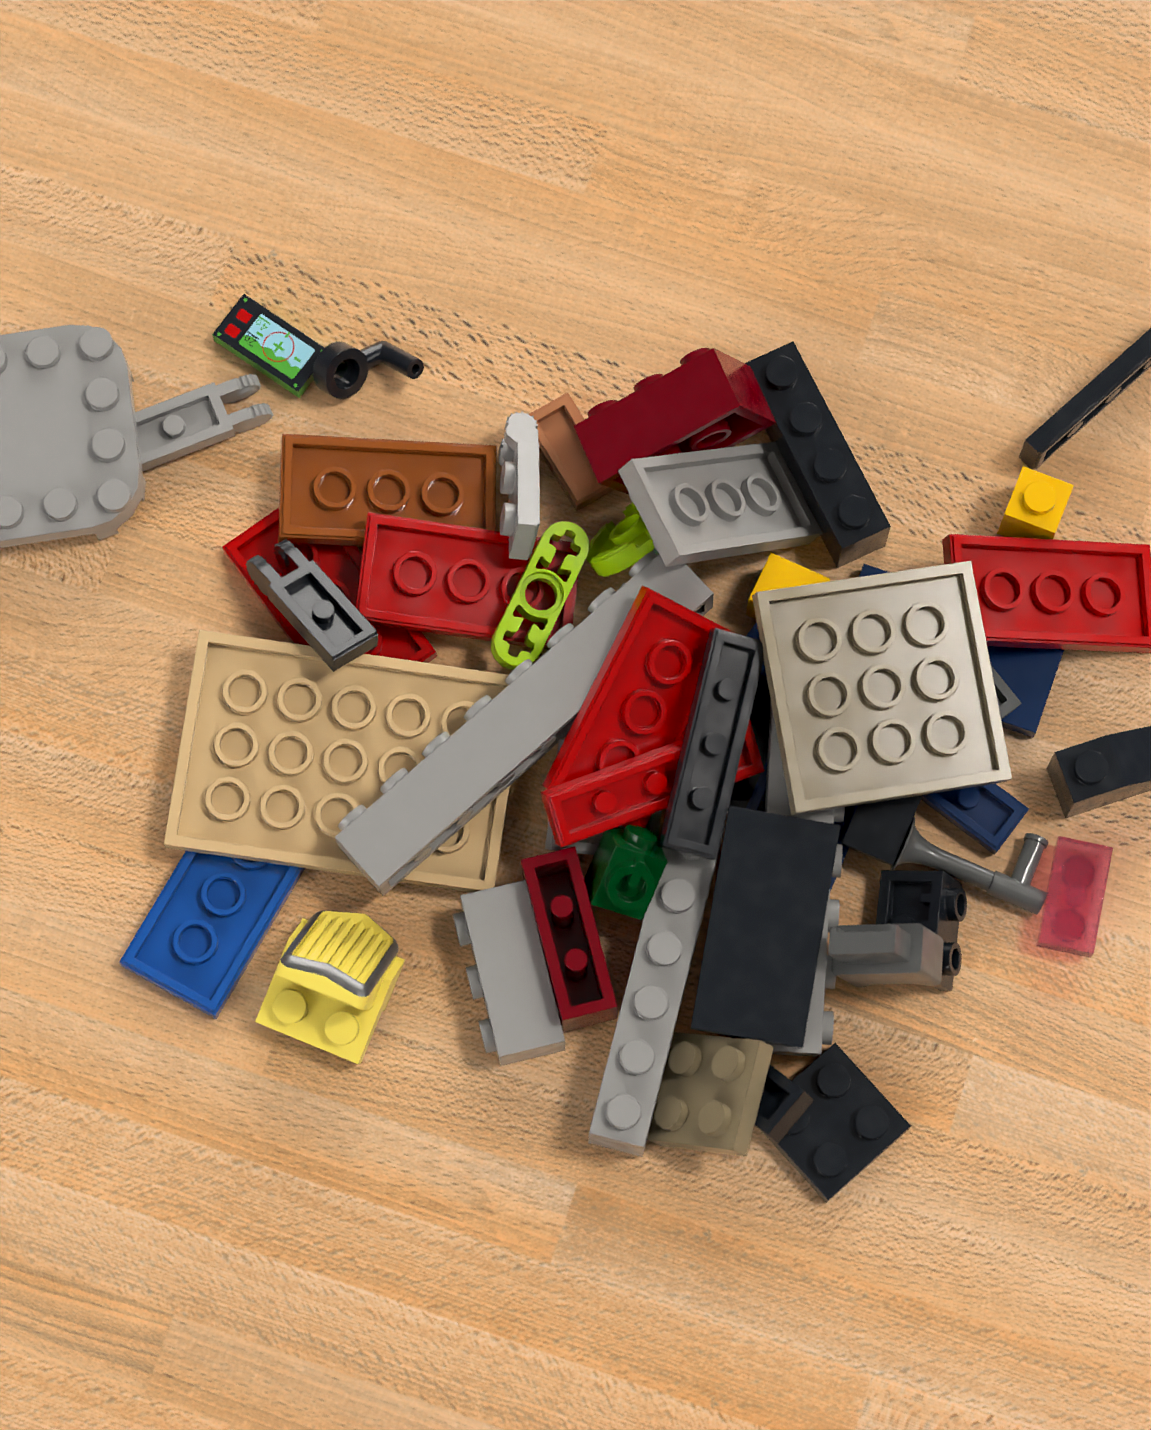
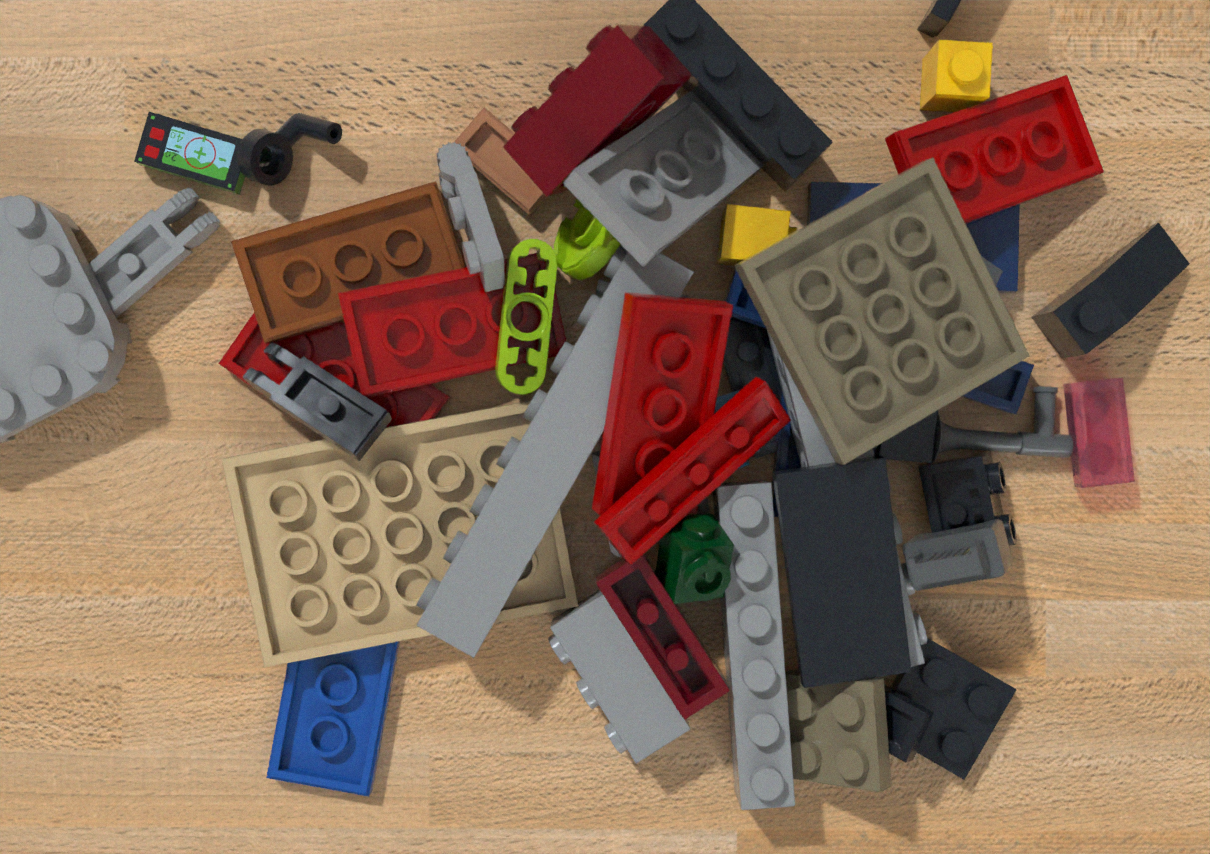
camera: 20 degrees left, 15 degrees up
(333, 983) = (462, 734): light yellow piece -> none
(712, 744) = (741, 420): black tile -> none

